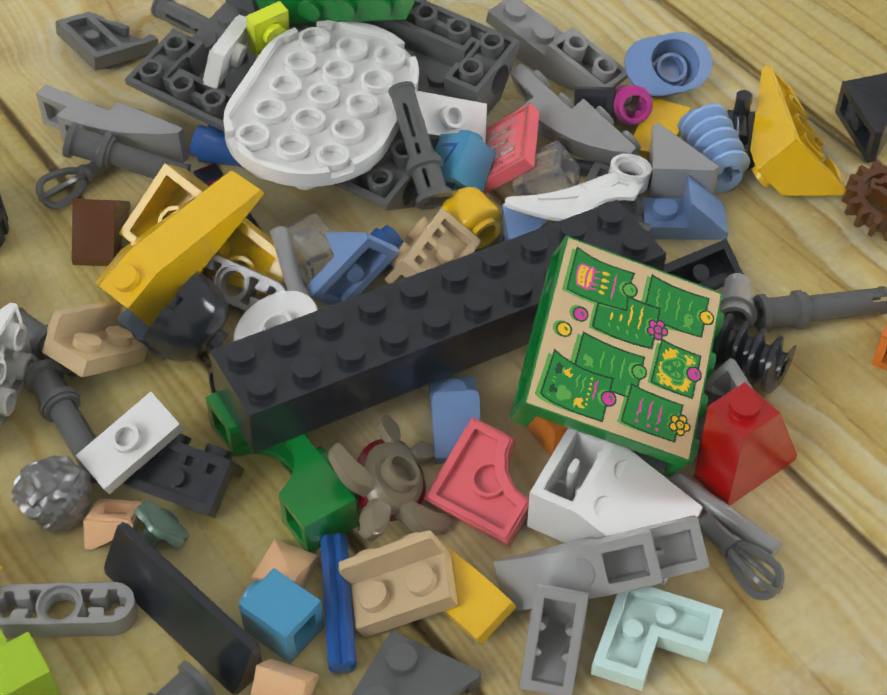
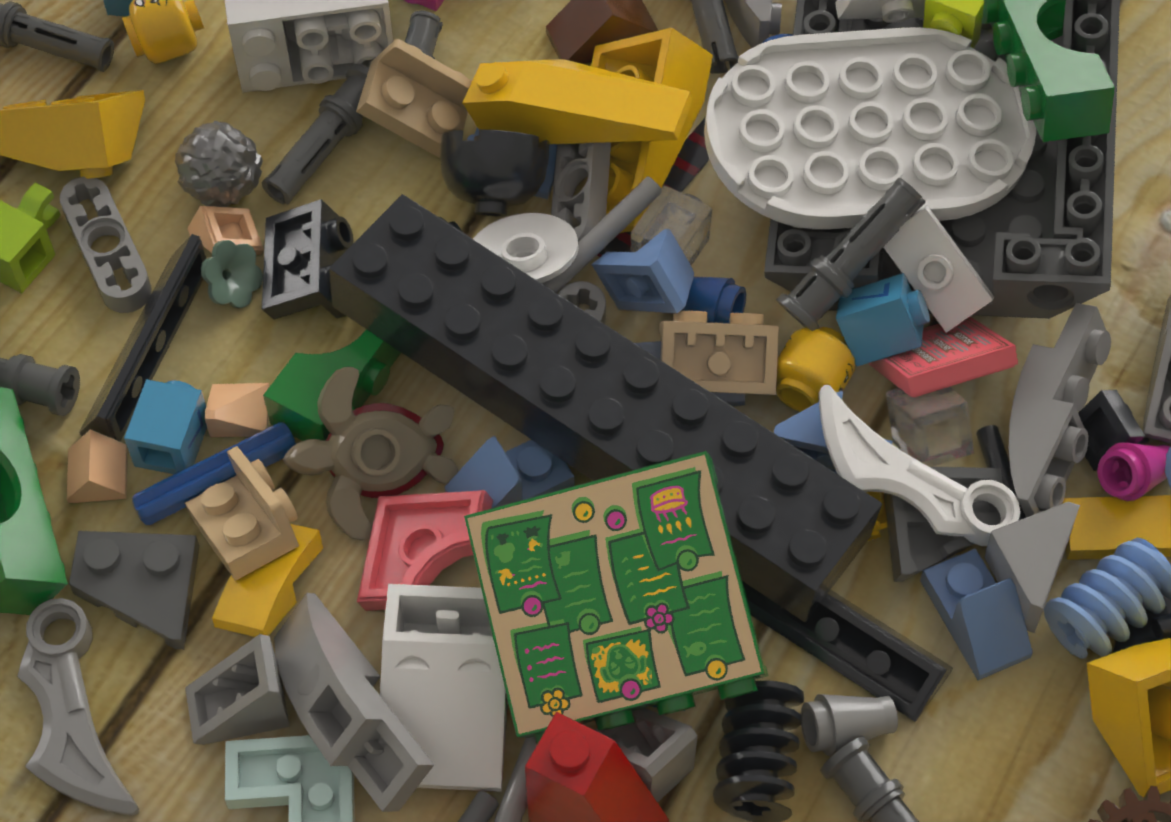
camera: 65 degrees right, 10 degrees up
(130, 442) = (296, 193): white plate -> none

